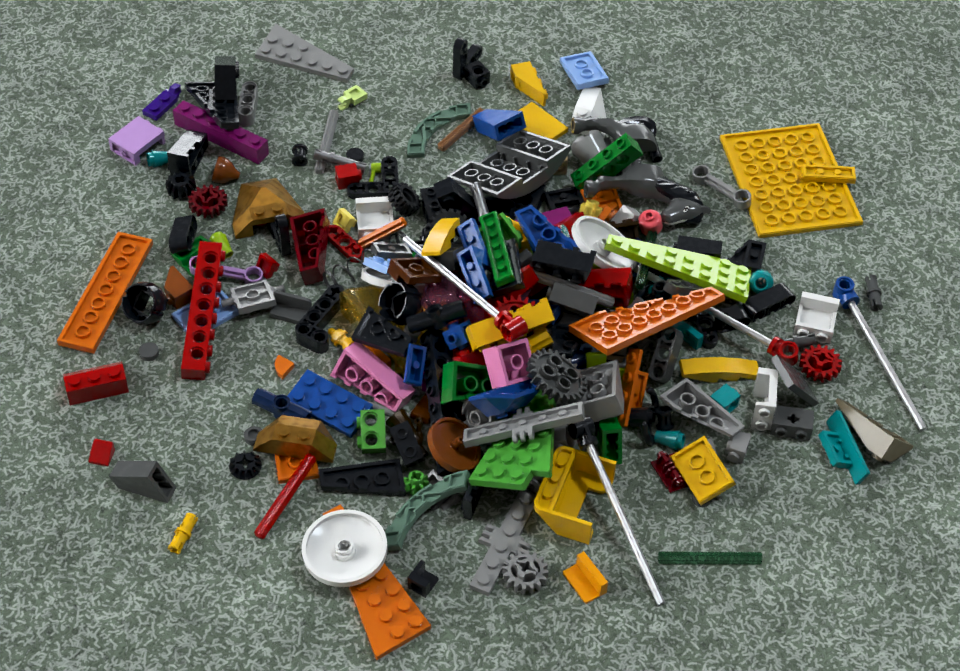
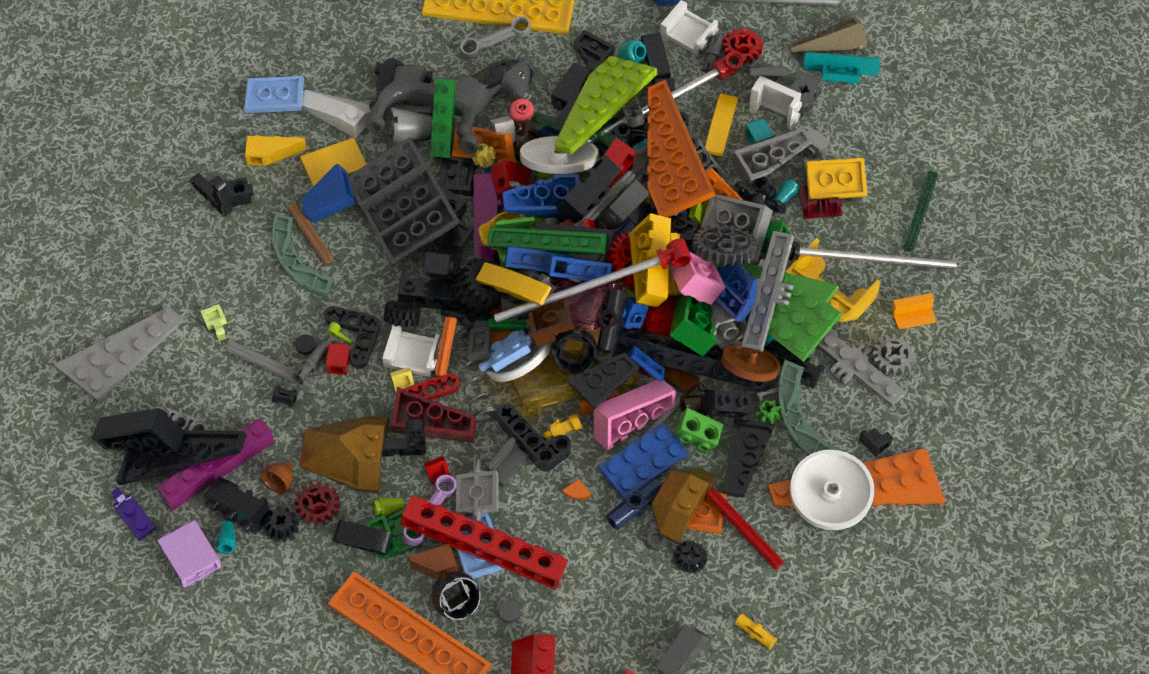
camera: 70 degrees left, 10 degrees up
(479, 199) = (469, 246): flat silver pin -> none

